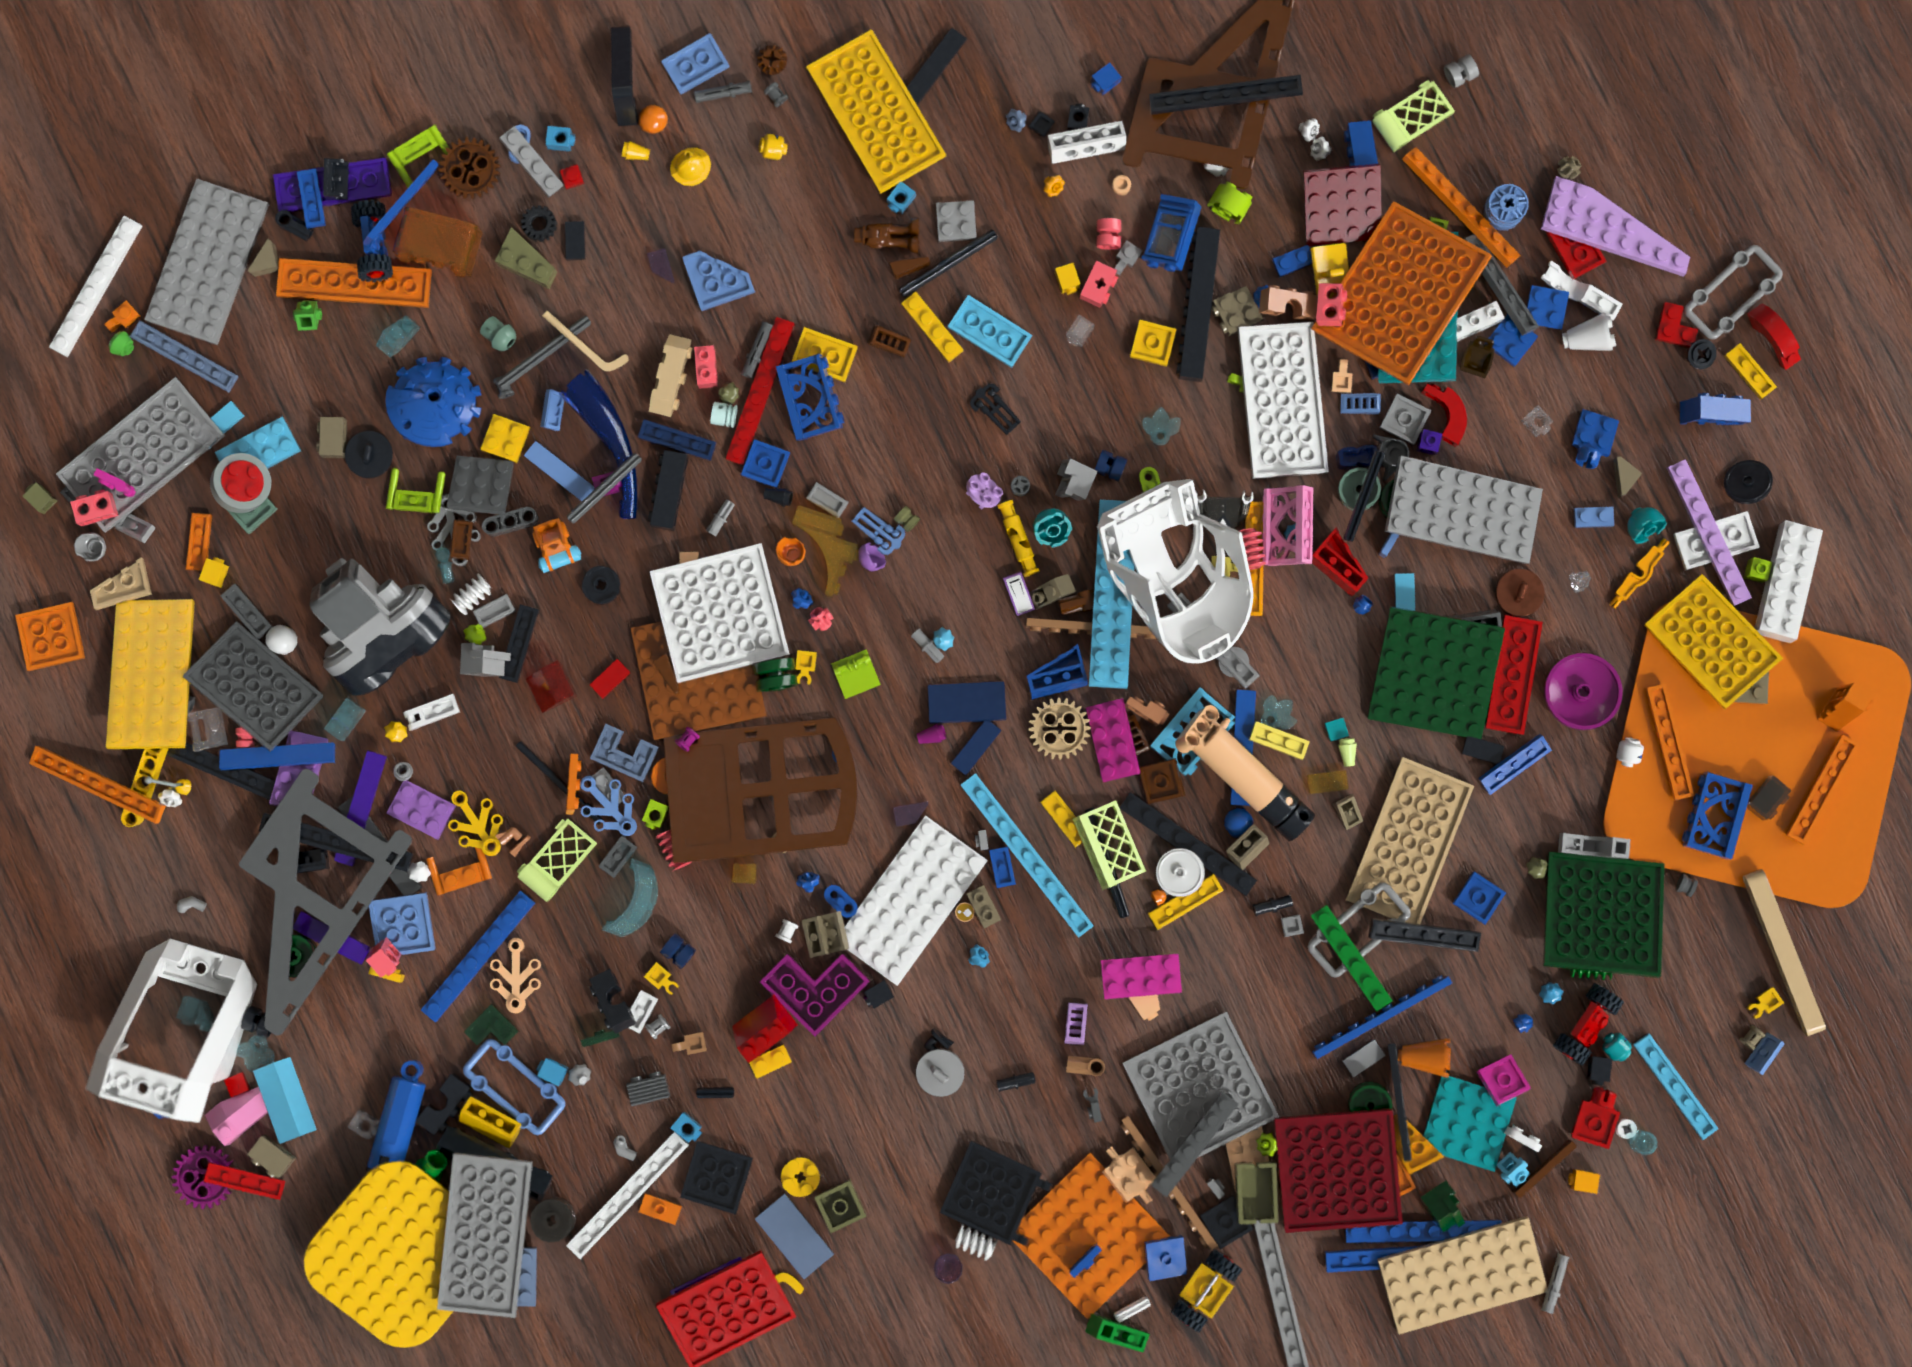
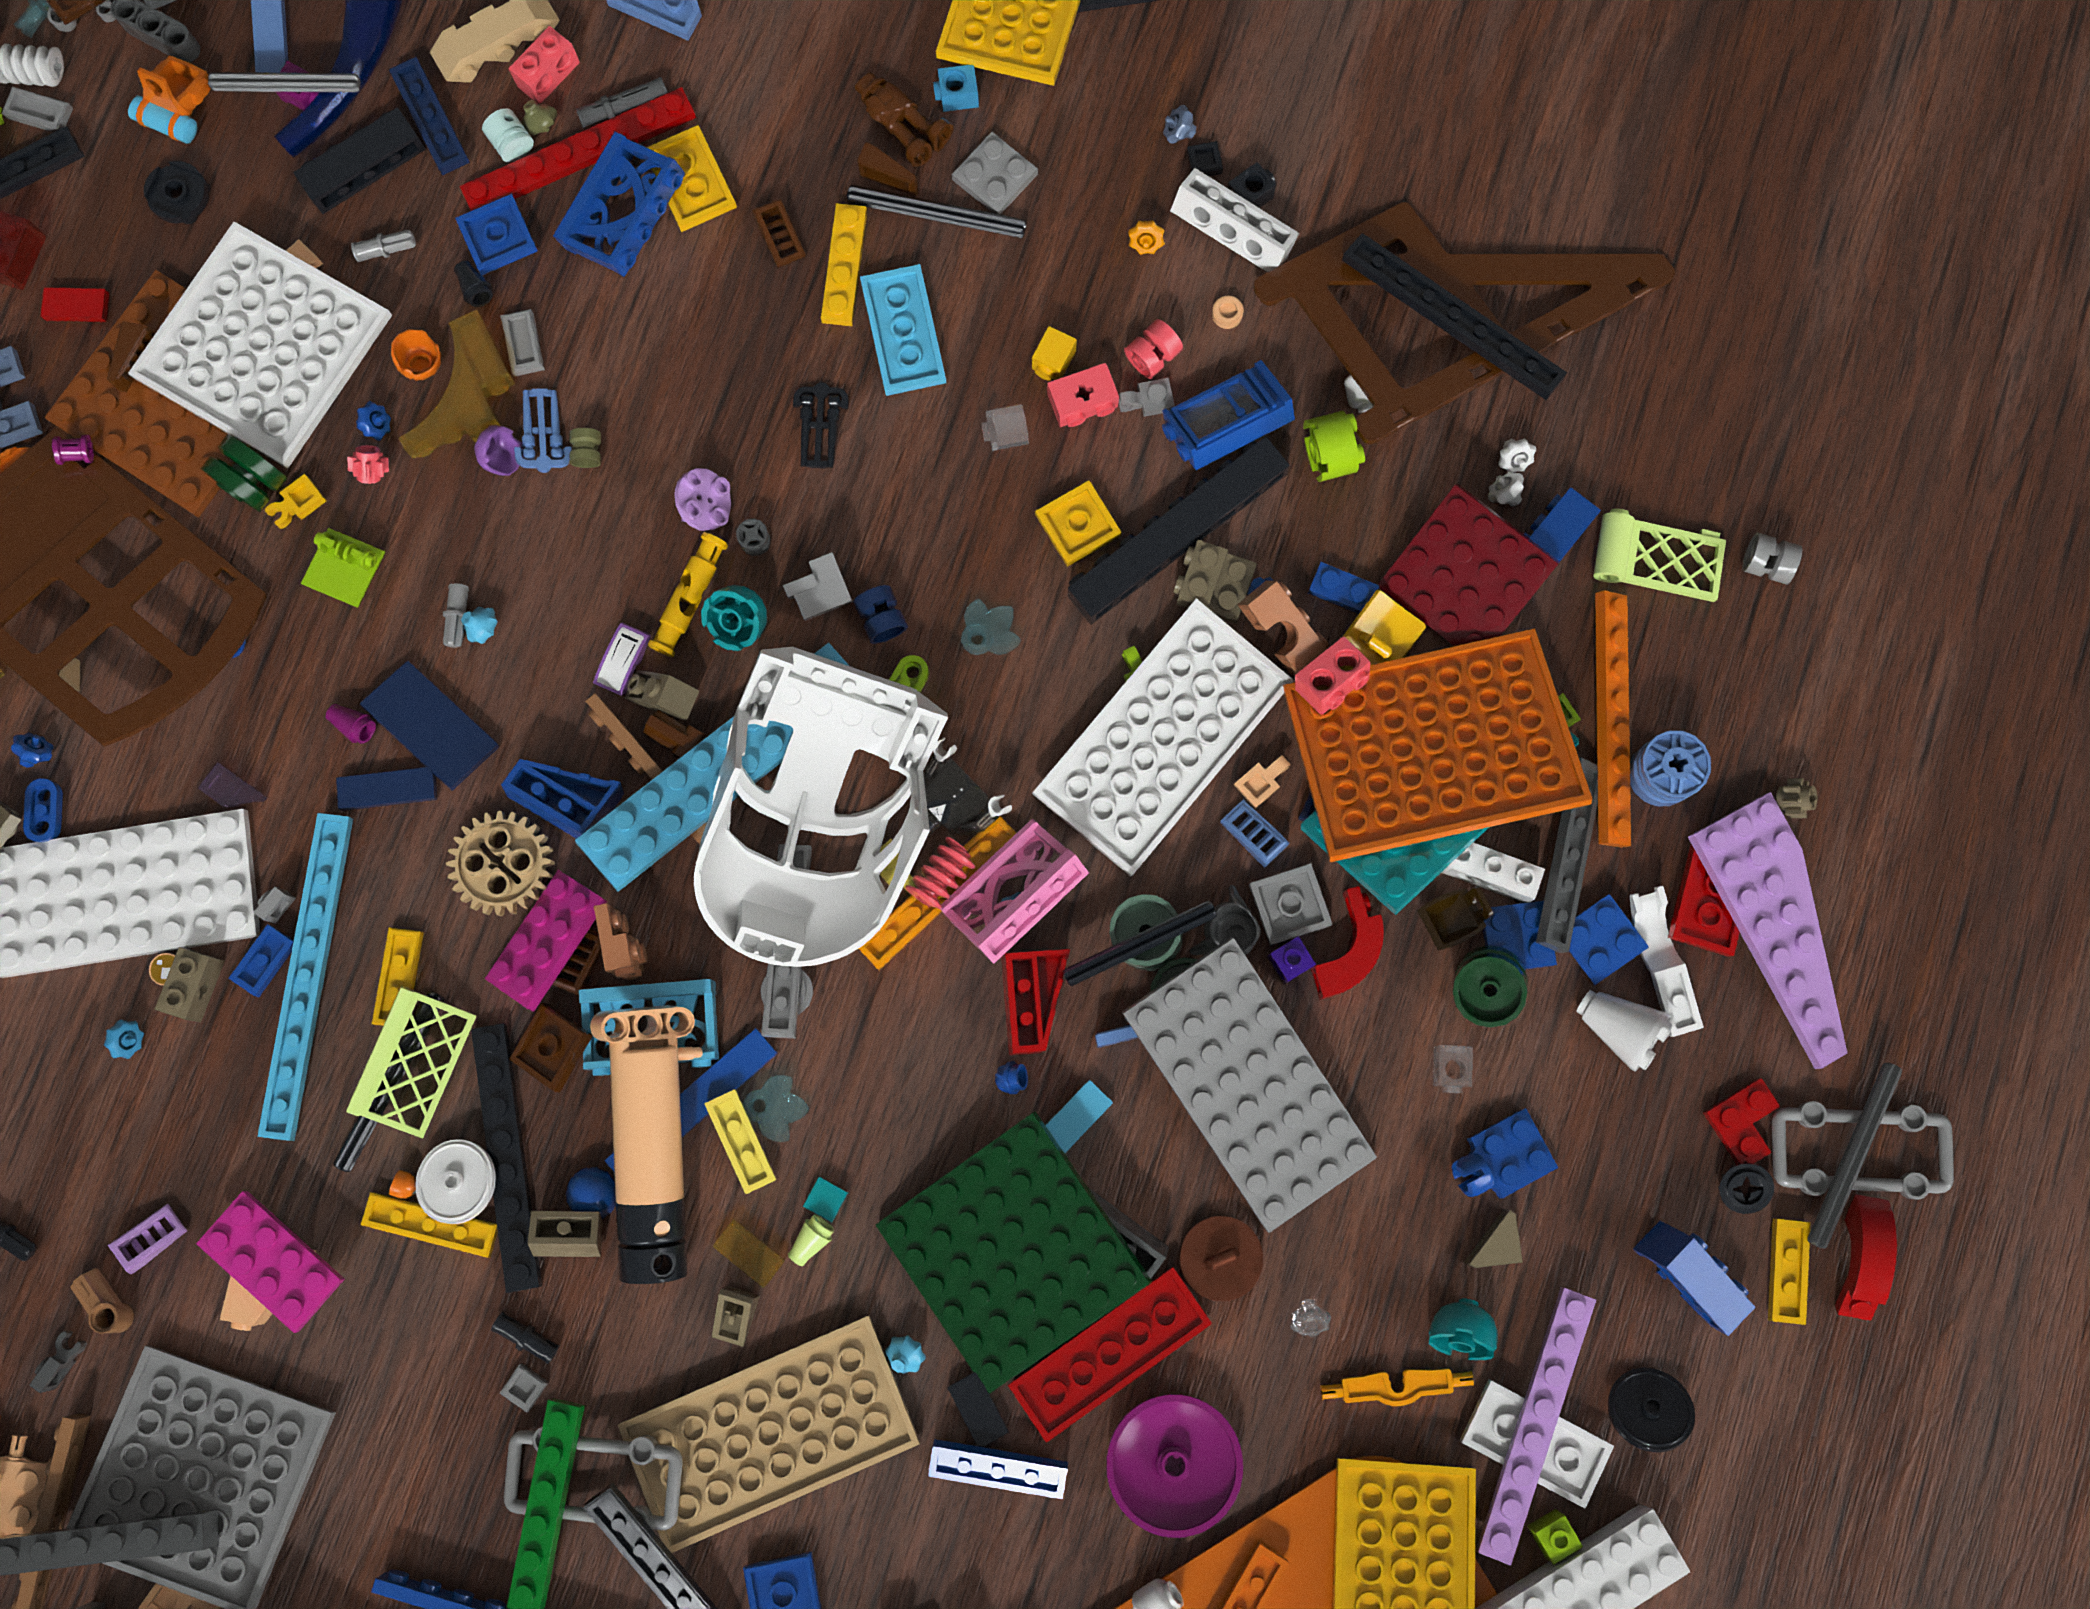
camera: 45 degrees right, 5 degrees down
(1105, 79) = (1329, 175): blue brick -> none
(1351, 457) = (1175, 885): clear blue brick -> none
(1432, 757) = (905, 1354): none -> medium azure piece
(1521, 372) = (1509, 990): none -> dark green wheel
(1593, 517) = (1408, 1256): medium blue plate -> none
(1732, 297) = (1854, 1155): none -> dark grey axle

